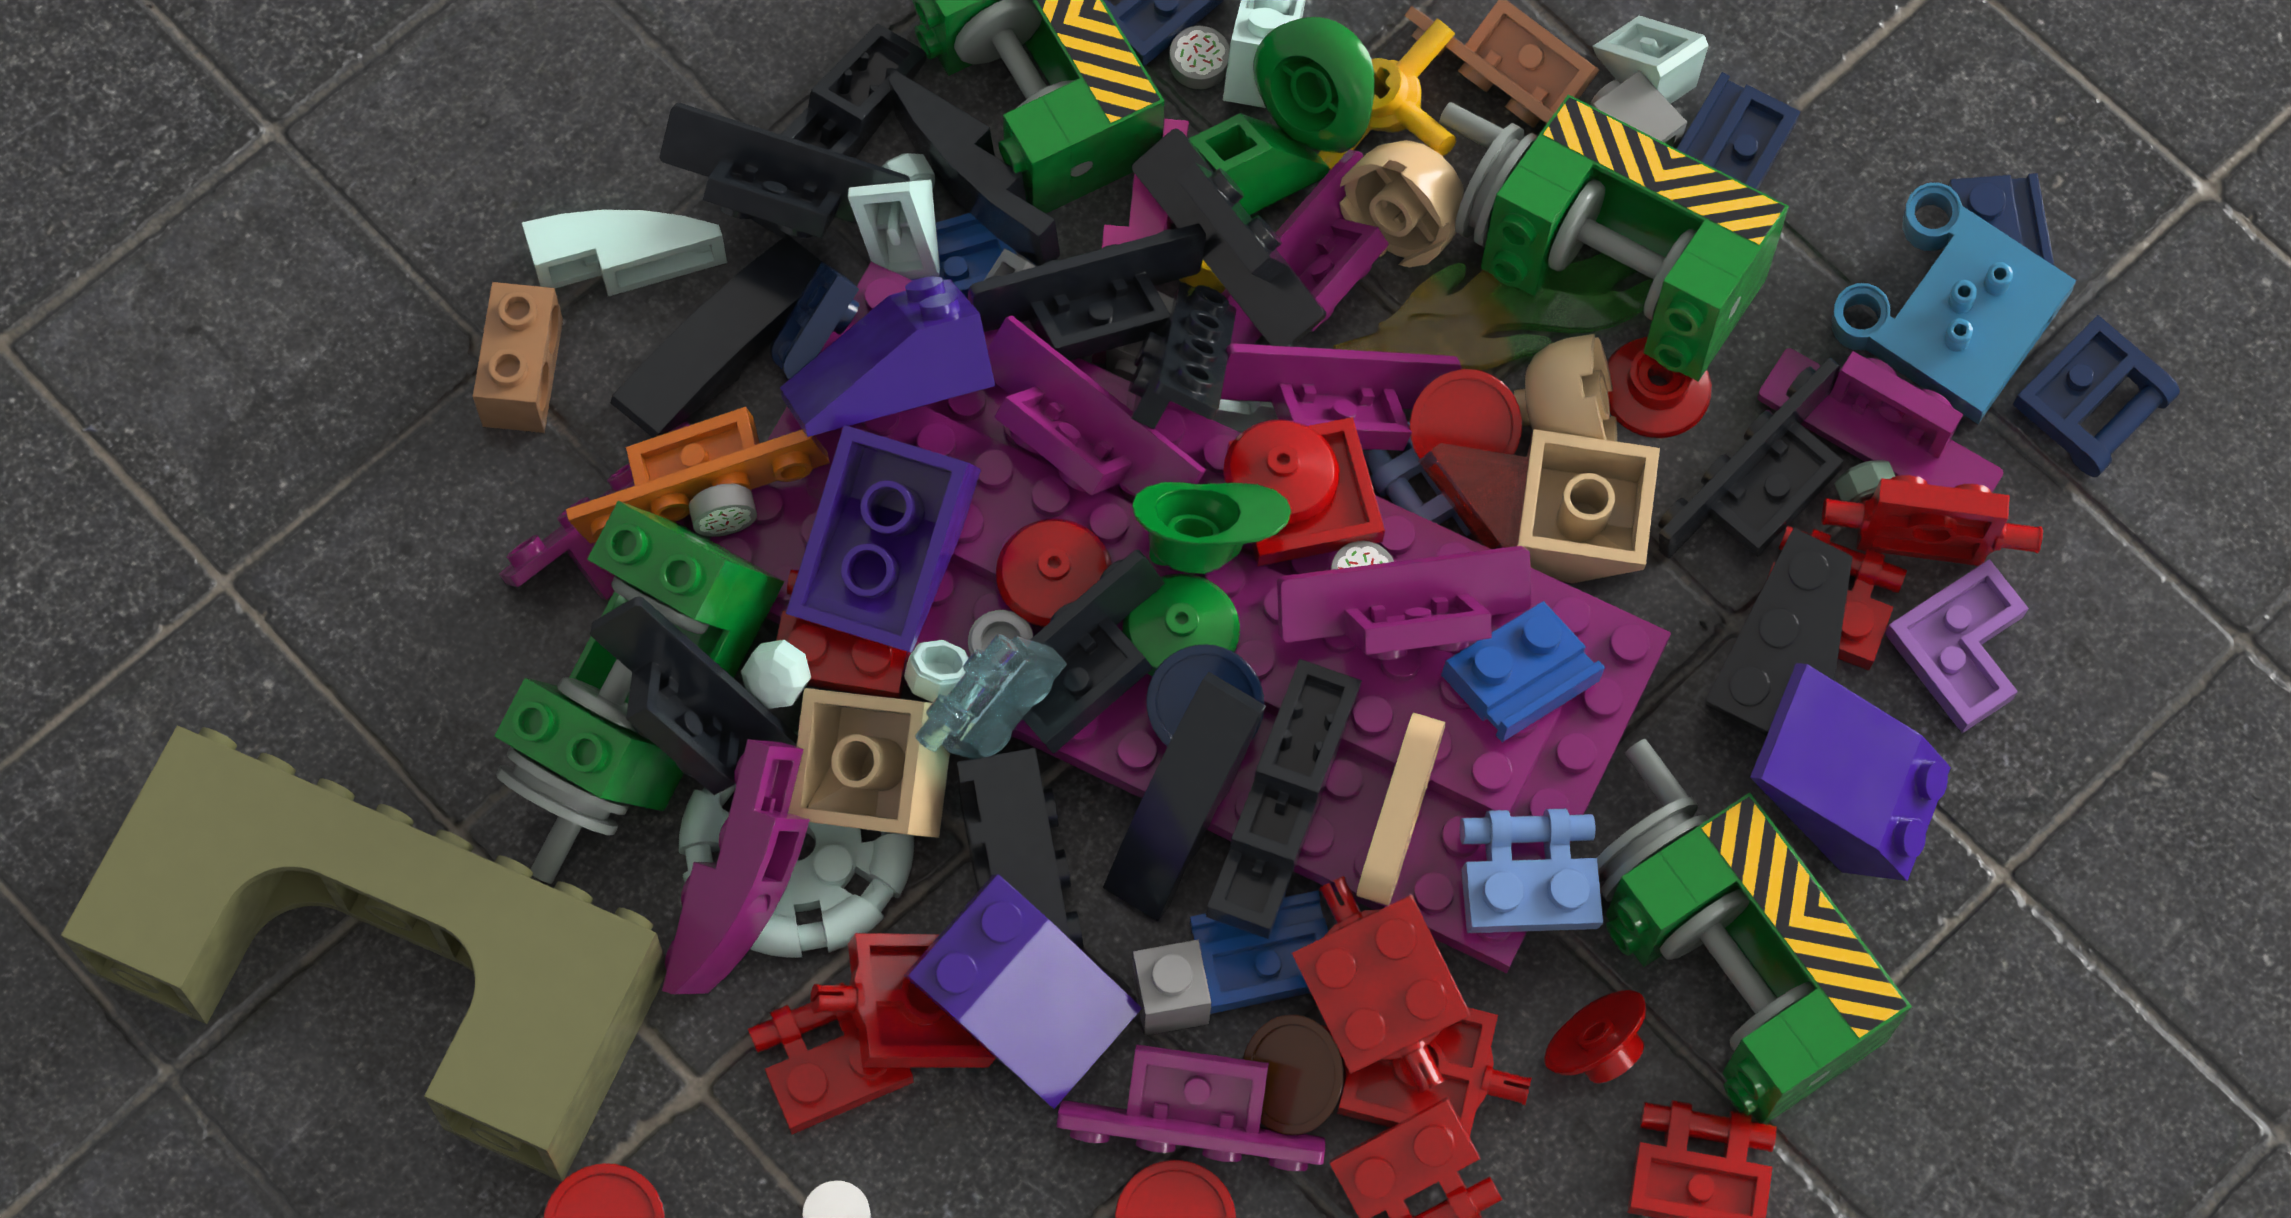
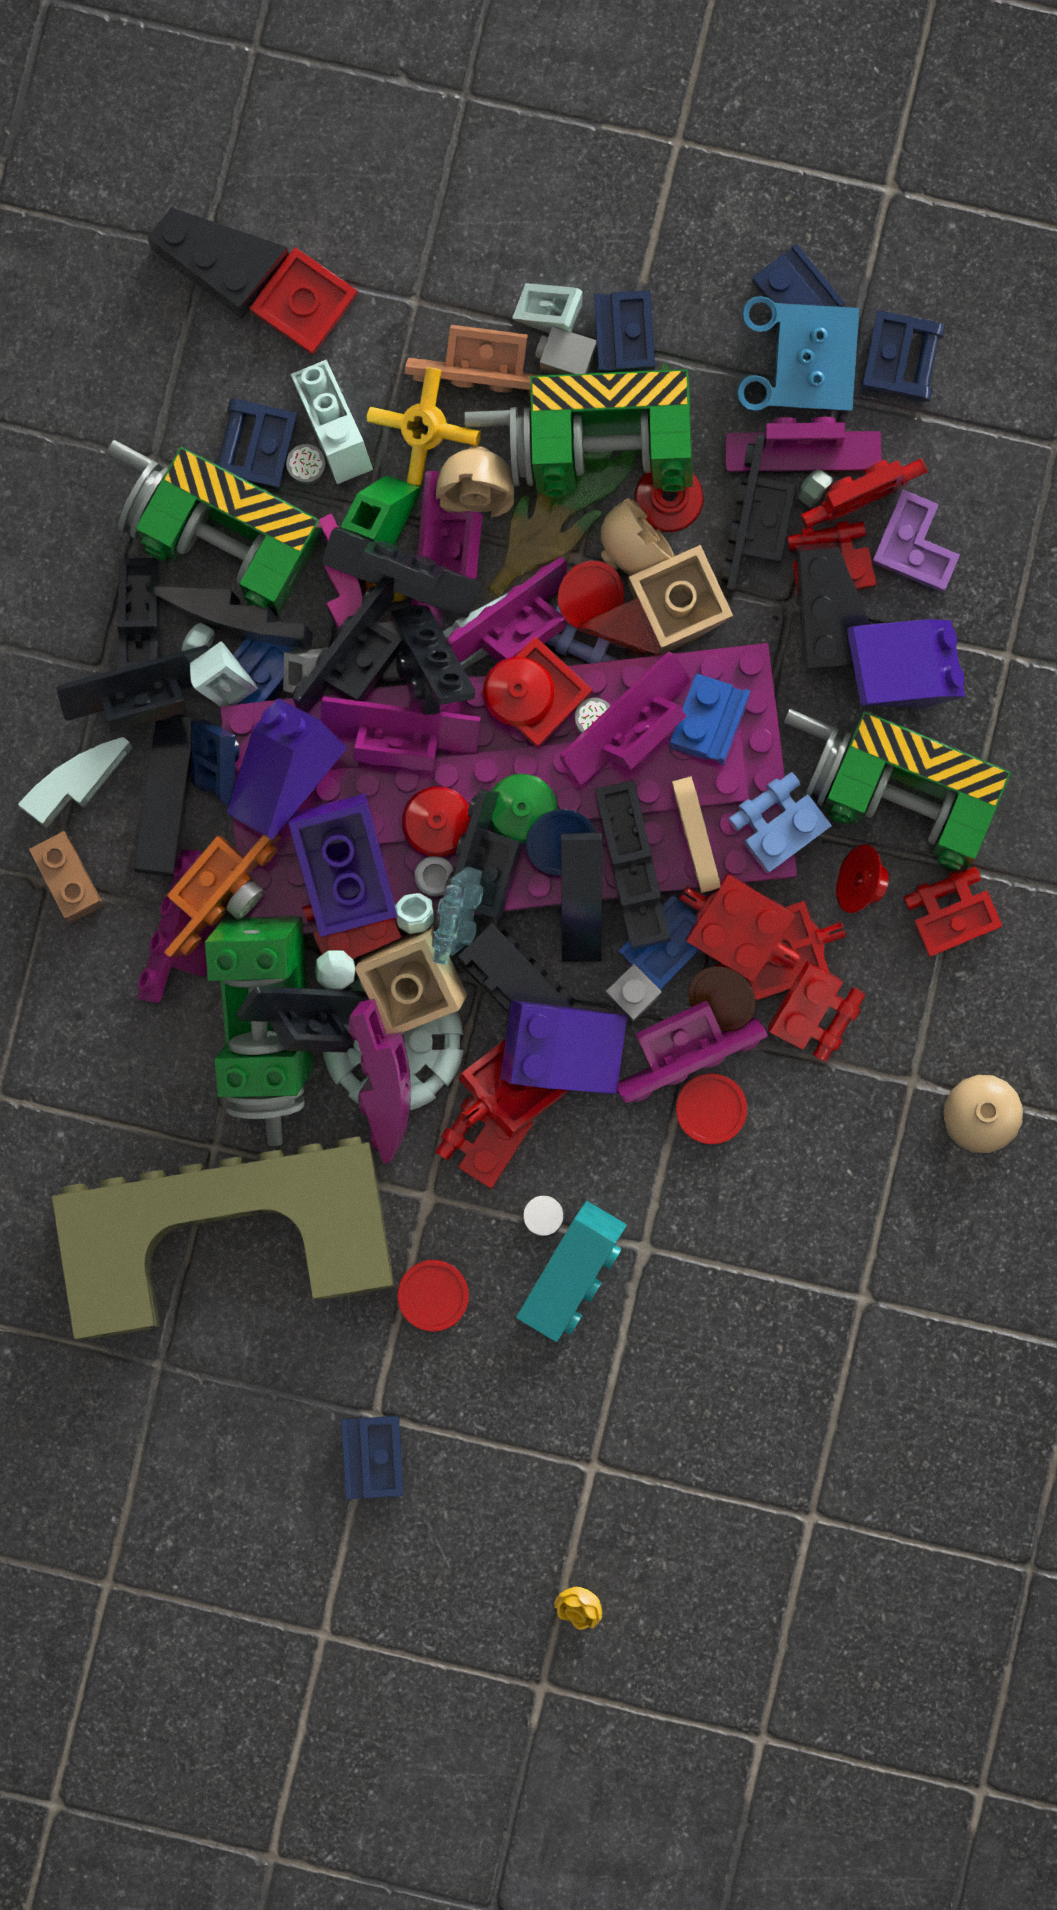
camera: 30 degrees left, 15 degrees up
(1207, 524) = (501, 747): green piece -> none
(1316, 82) = (389, 451): green hat -> none

